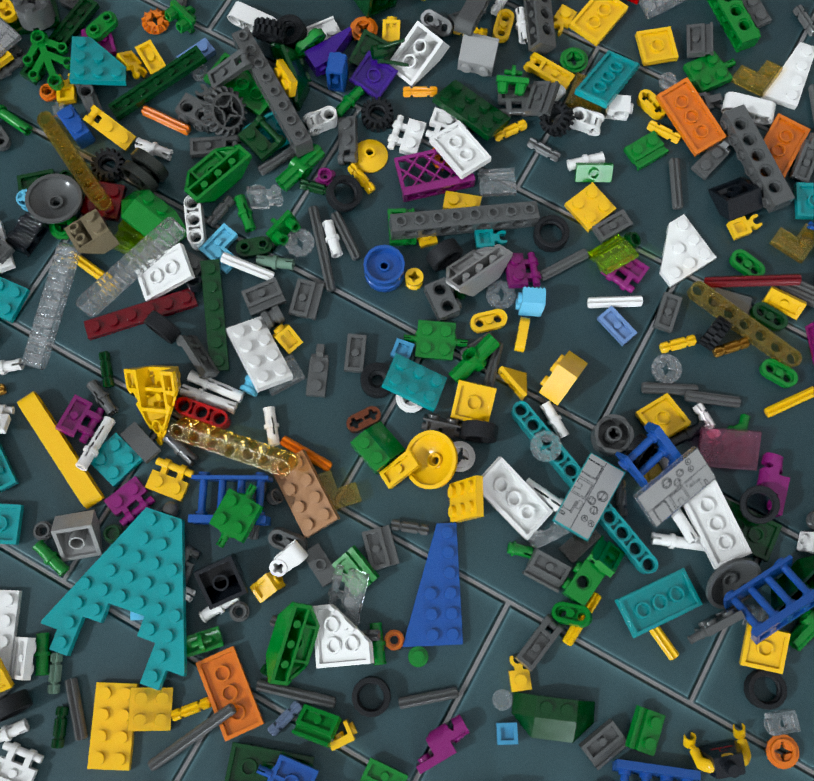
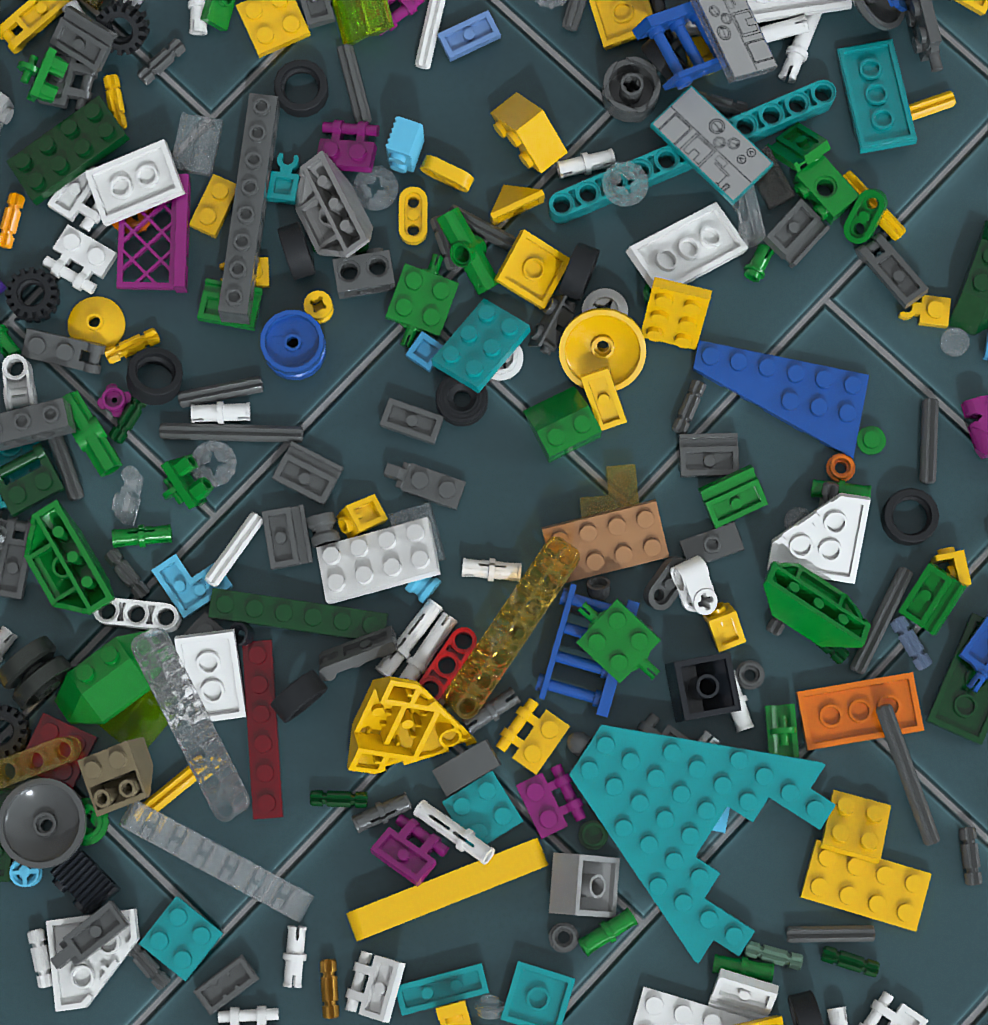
camera: 75 degrees left, 5 degrees up
(190, 709) = (868, 771): yellow axle -> none
(254, 247) = (201, 534): dark green plate -> none
(275, 262) = (235, 507): sand green pin -> none
(315, 458) = (535, 537): orange axle -> none
(354, 589) = (761, 504): clear plate -> none
(361, 415) = (521, 433): copper beam -> none
(533, 484) = (694, 199): white pin -> none

